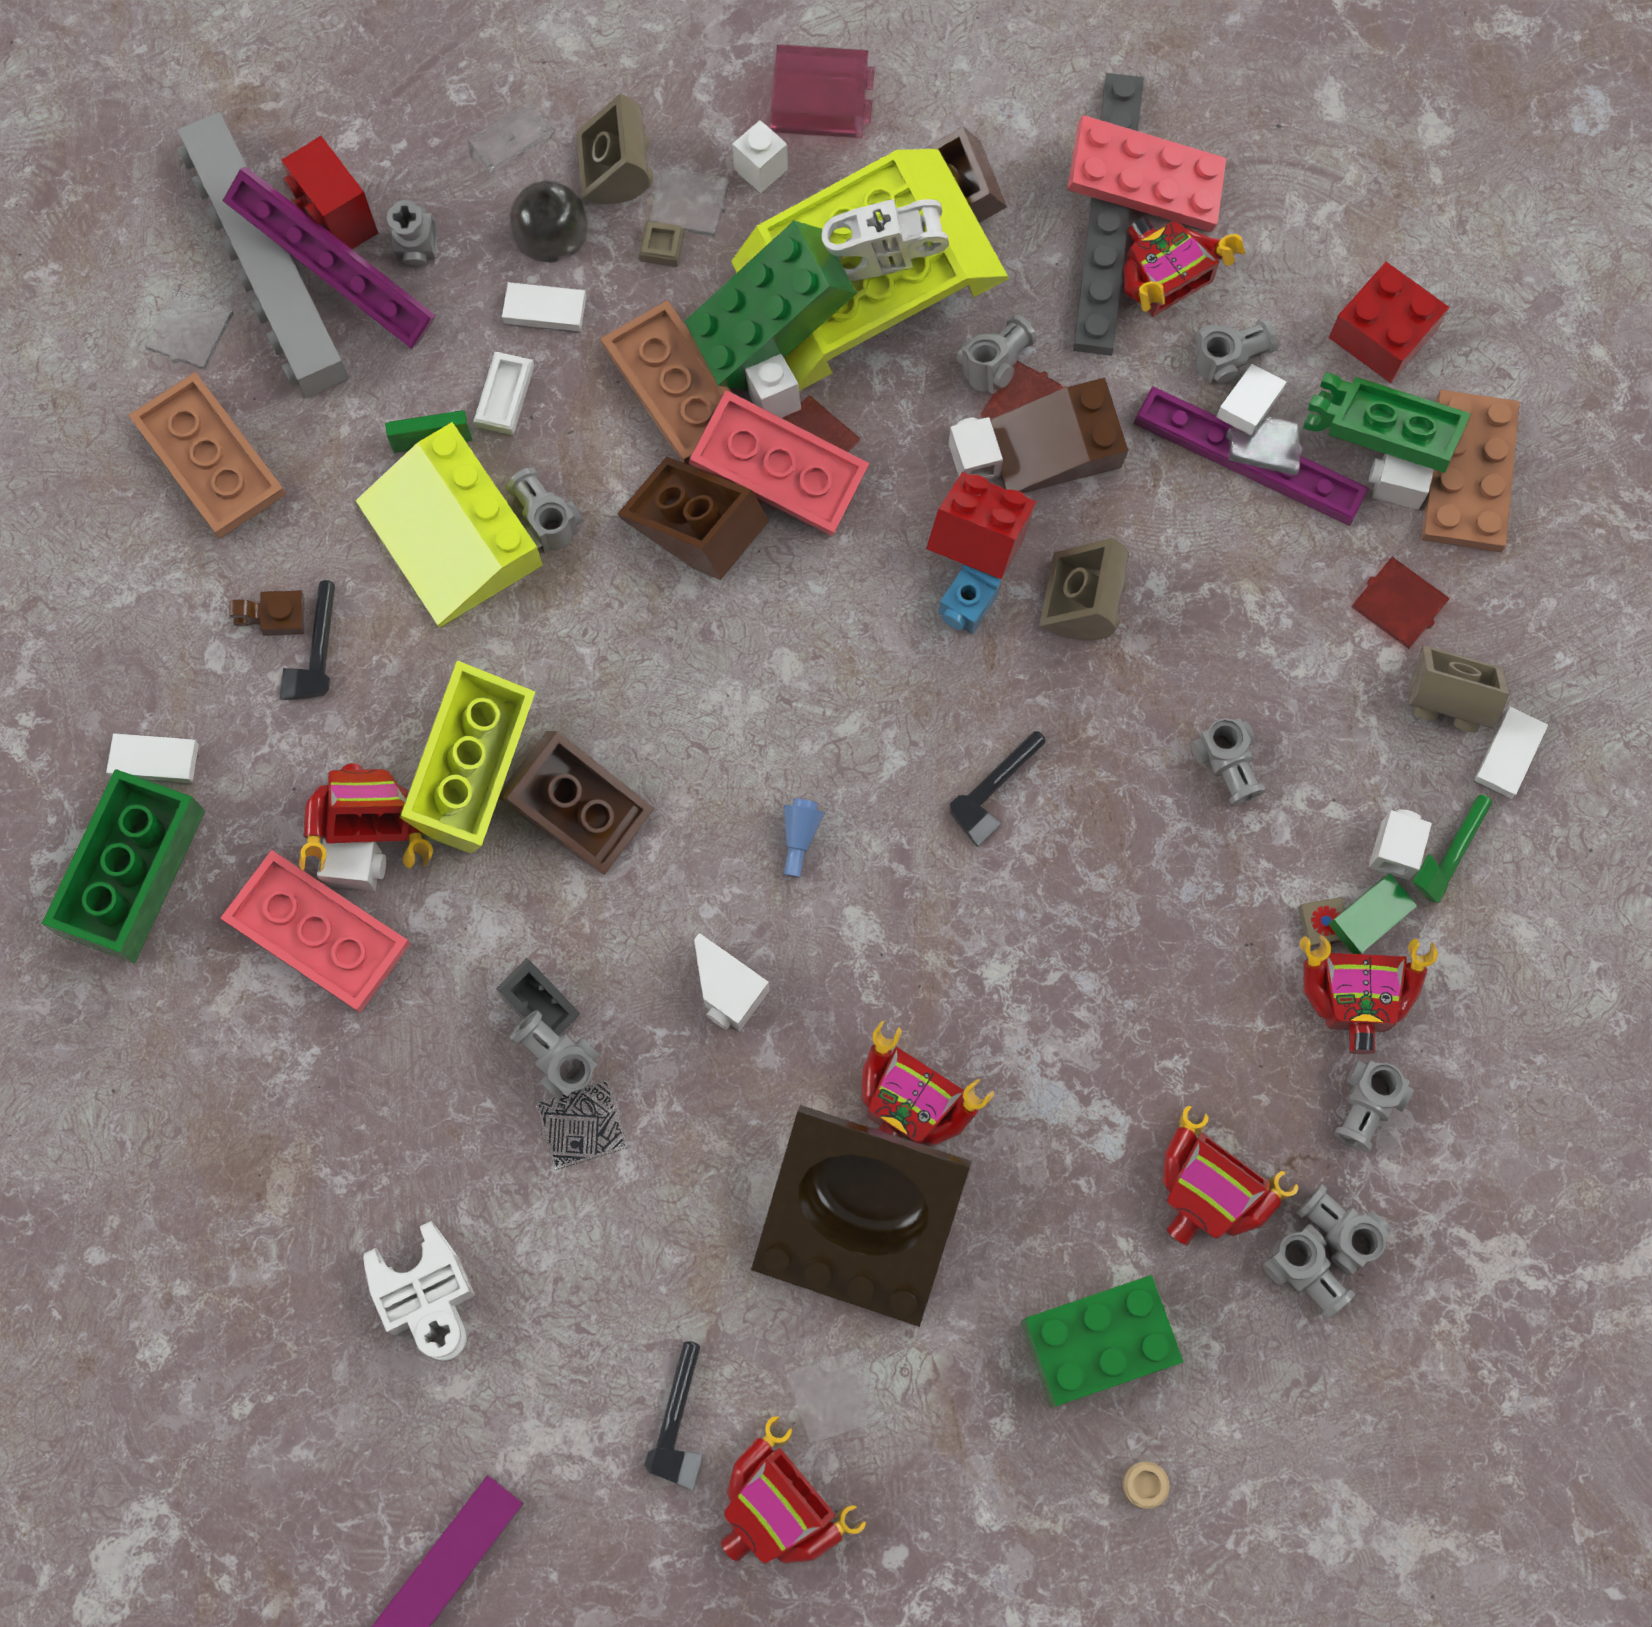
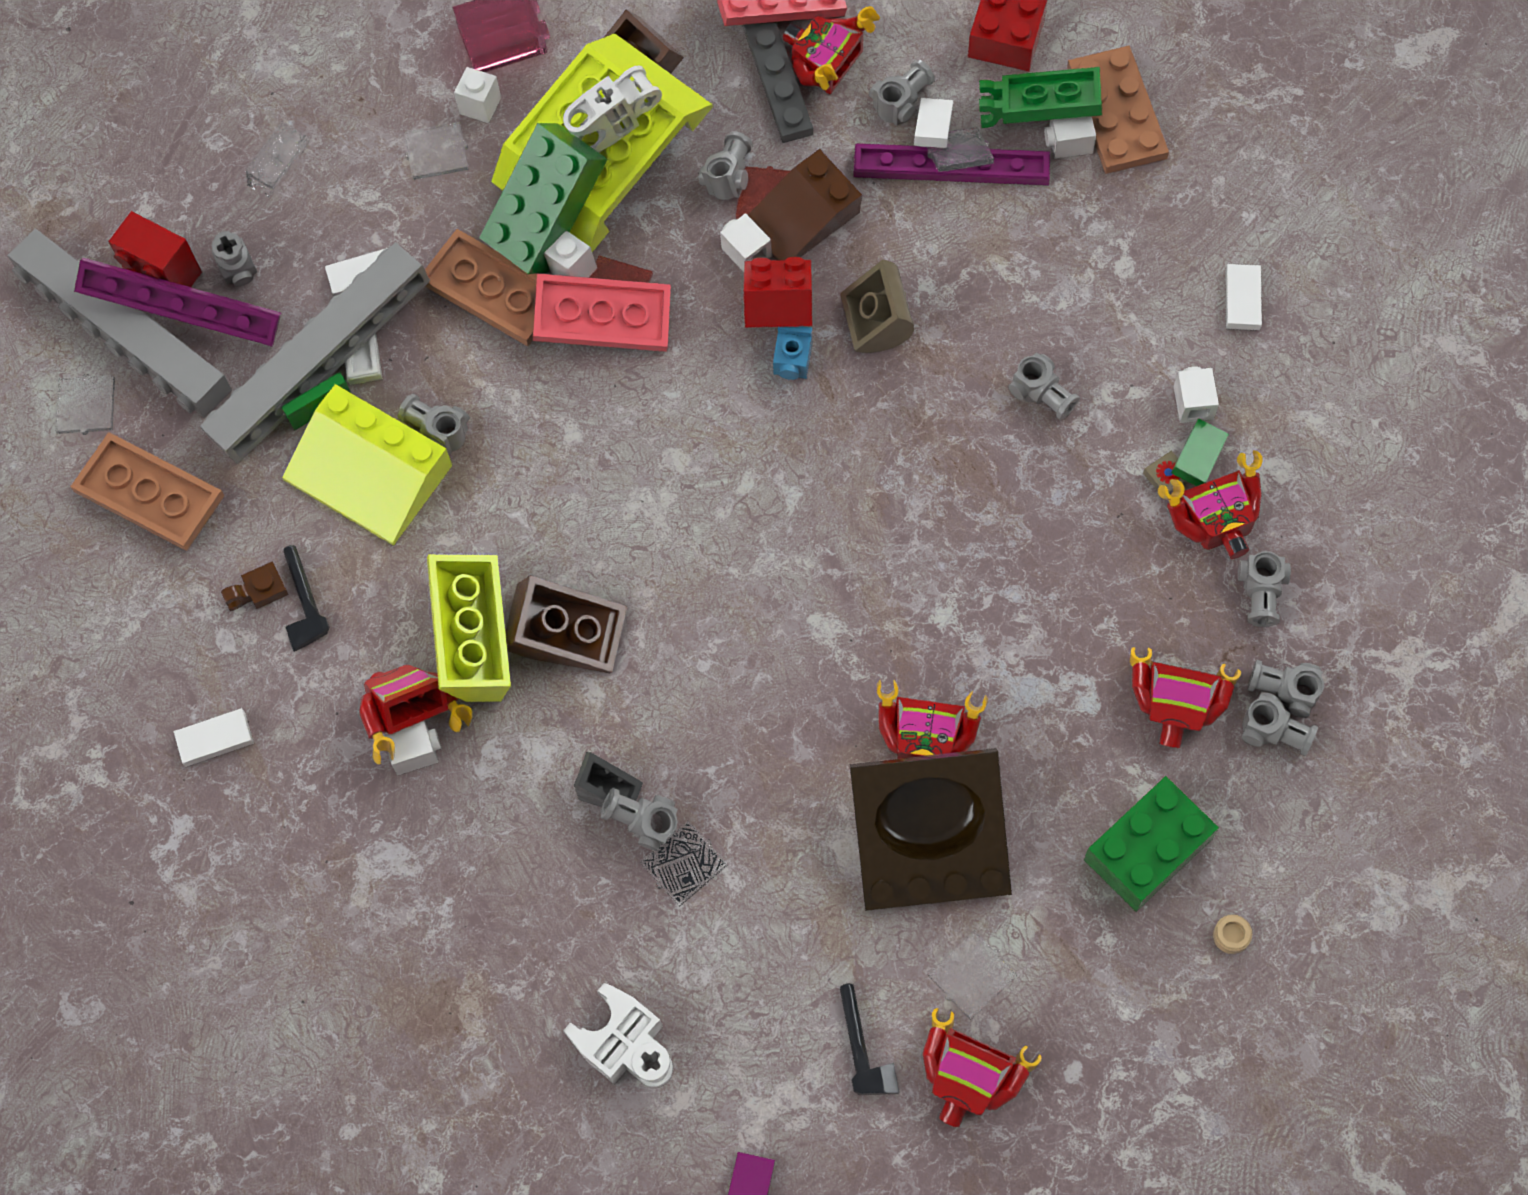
camera: 20 degrees left, 5 degrees down
(124, 866) = (233, 825): green brick -> none
(315, 931) = (407, 809): coral plate -> none
(451, 375) = (315, 351): none -> light grey brick
(548, 221) = (334, 208): clear smoke cylinder -> none
(614, 153) = (363, 137): dark tan brick -> none
(661, 243) = (430, 190): dark tan tile -> none
(696, 516) = (555, 378): reddish brown slope -> none
(727, 985) = (746, 710): white slope -> none
(800, 827) = (745, 569): medium blue cone -> none
(967, 808) = (865, 507): black piece -> none
(1400, 602) = (1112, 224): clear red piece -> none
(1434, 878) = (1231, 406): green piece -> none
(1457, 688) = (1184, 266): dark tan brick -> none

